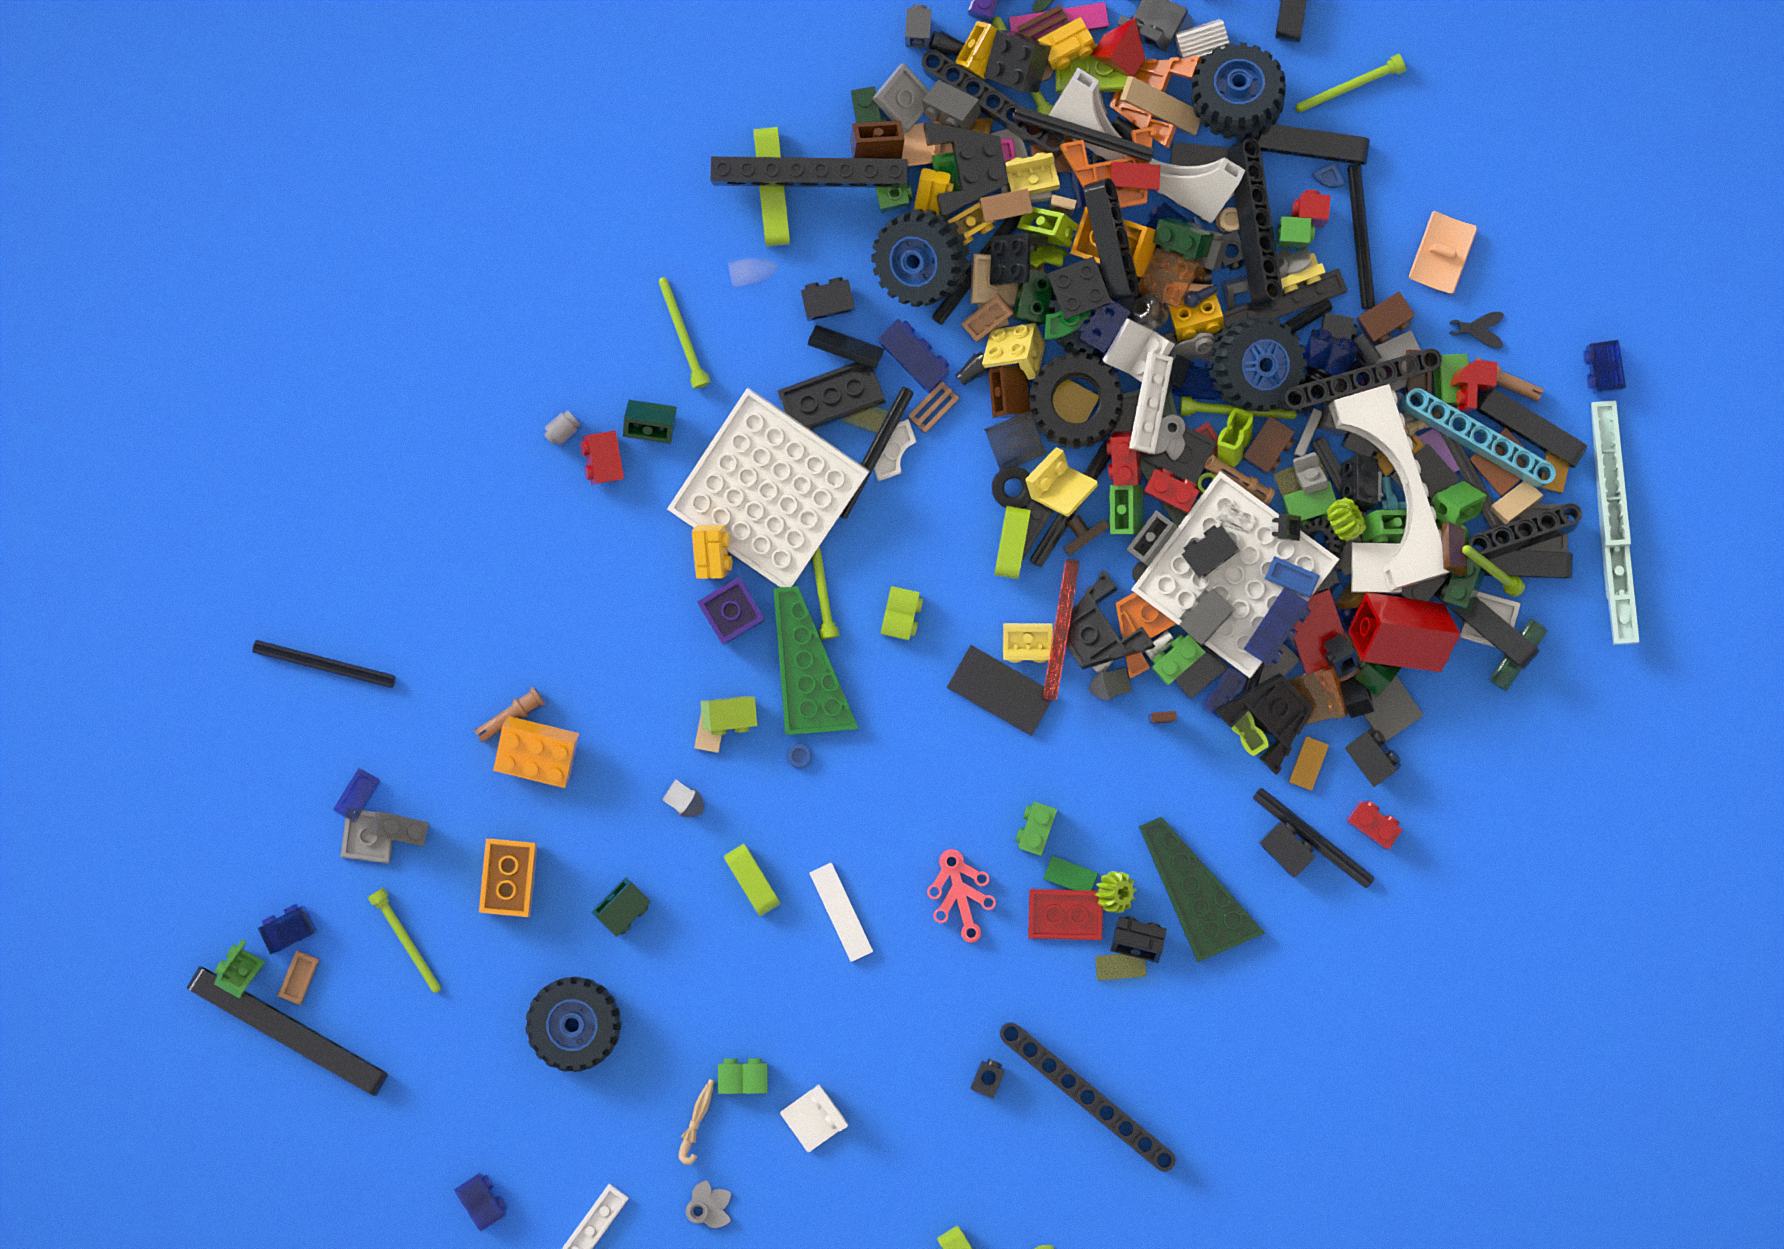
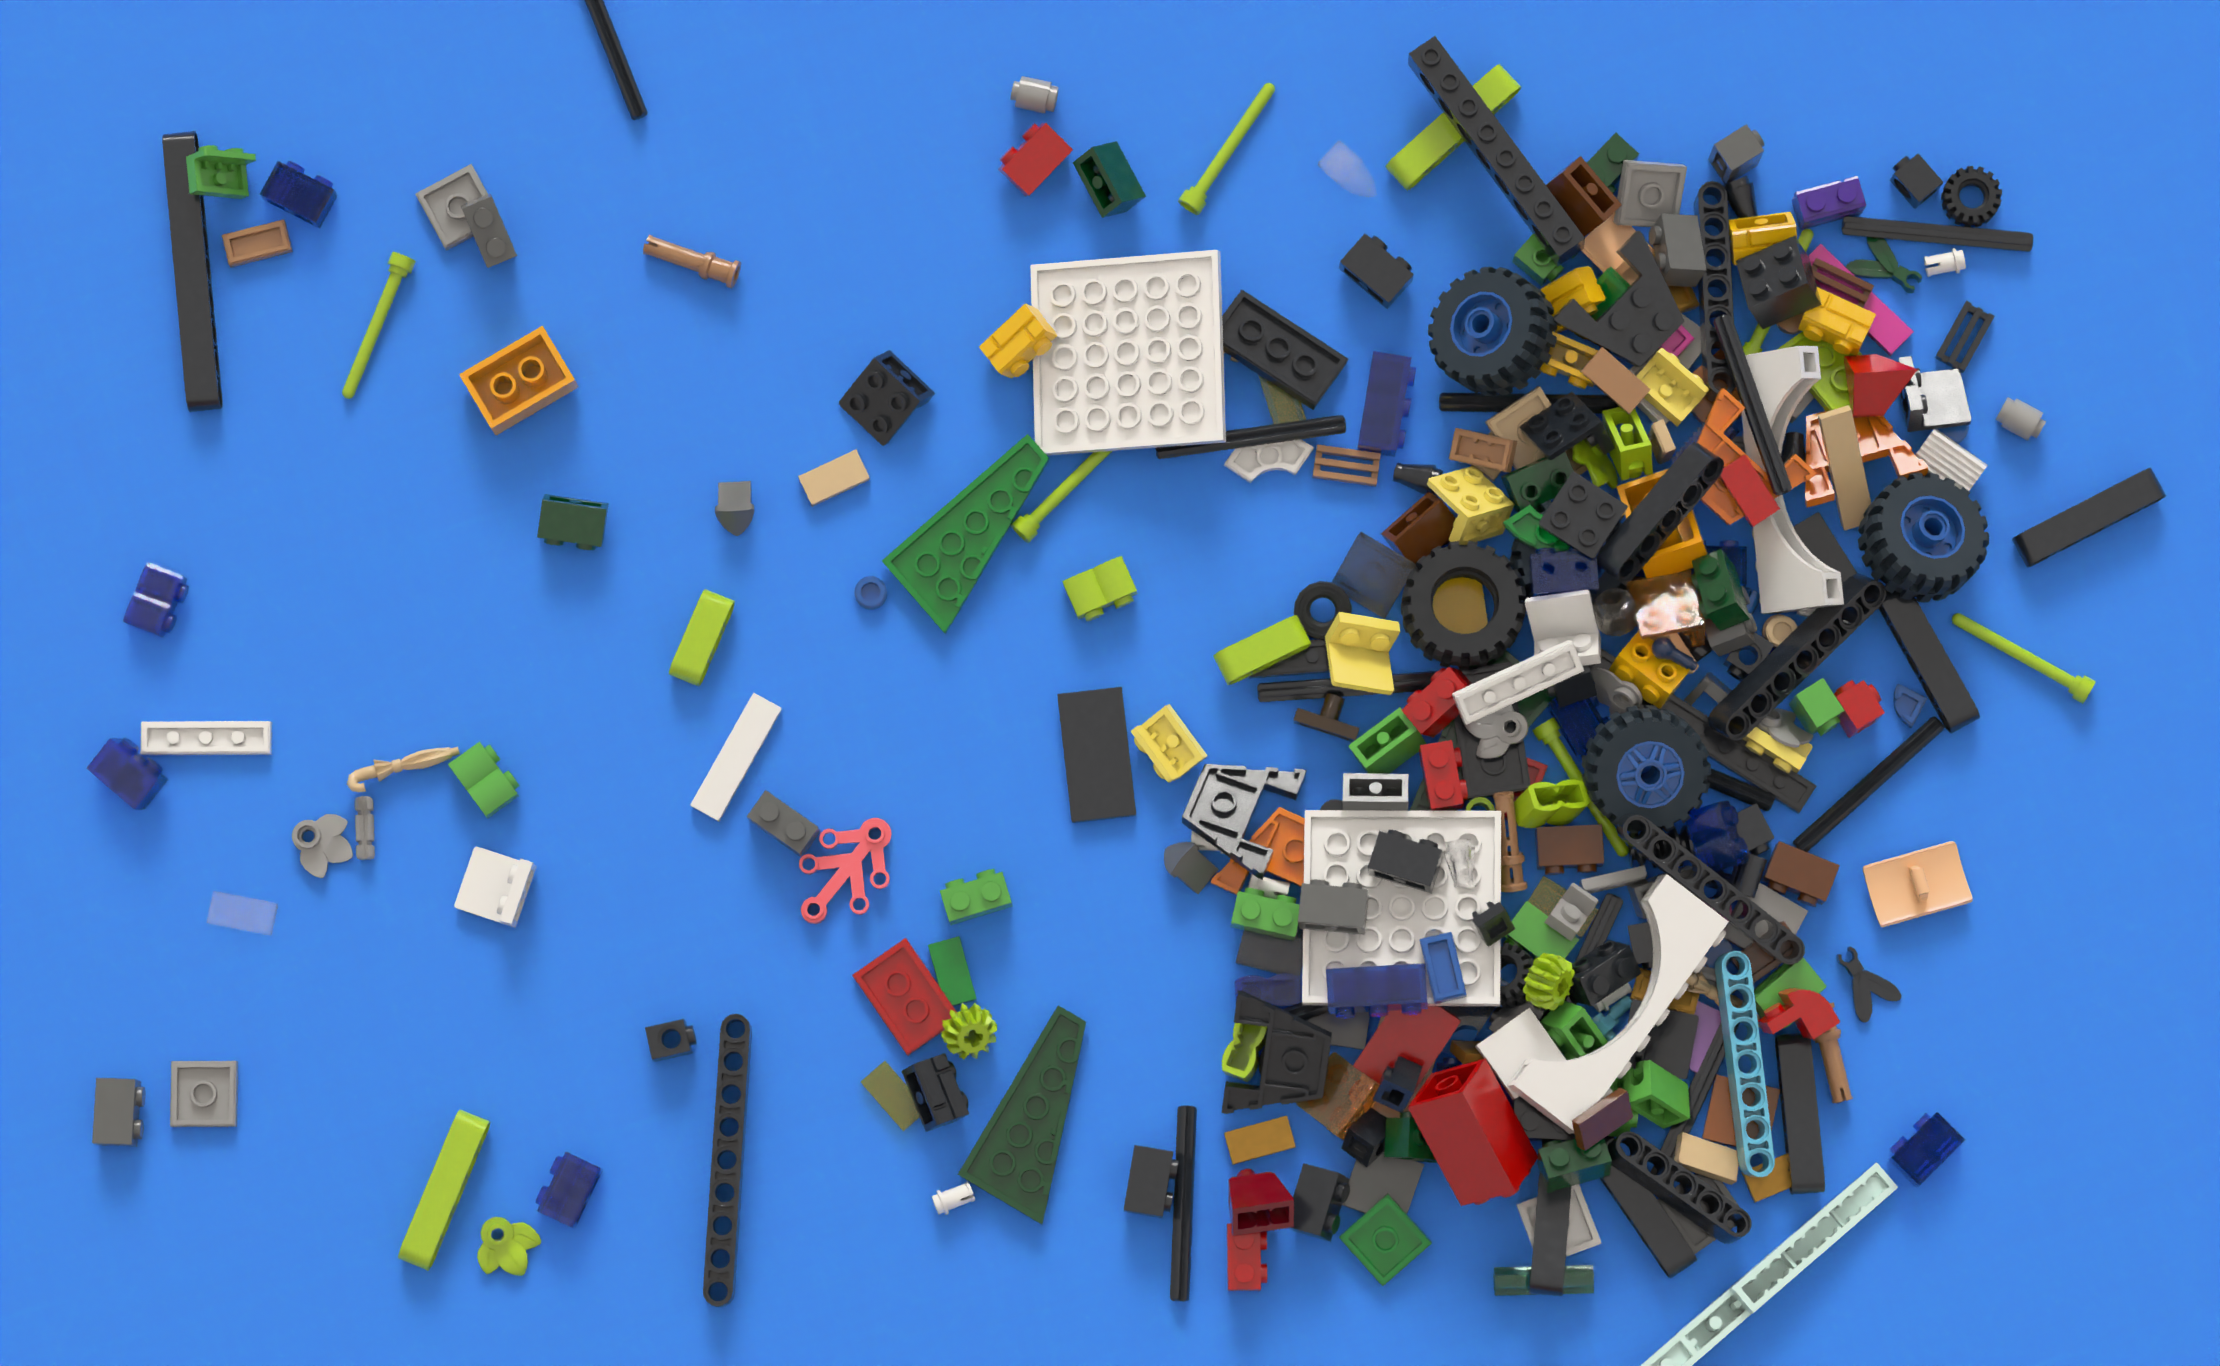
camera: 55 degrees right, 5 degrees down
(356, 795) = (492, 163): clear blue tile -> none
(536, 751) = (672, 313): light orange brick -> none
(597, 1021) = (430, 583): black wheel -> none
(684, 658) = (885, 396): none -> black bracket
(718, 1172) = (364, 828): none -> light grey axle
(728, 713) = (859, 484): lime brick -> none
(731, 611) = (971, 408): brick -> none
(846, 346) = (1341, 326): black tile -> none
(905, 913) = (783, 823): none -> dark grey brick
(1035, 1206) = (569, 1189): none -> clear blue brick
(1061, 630) = (1206, 769): clear red axle -> none
(1162, 717) = (1192, 944): reddish brown tile -> none
(1209, 975) = (953, 1198): none -> white pin
(1349, 792) = (1258, 1203): none -> dark red torso
(1424, 731) = (1385, 1239): none -> green tile
(1511, 584) = (1614, 1218): lime piece -> none

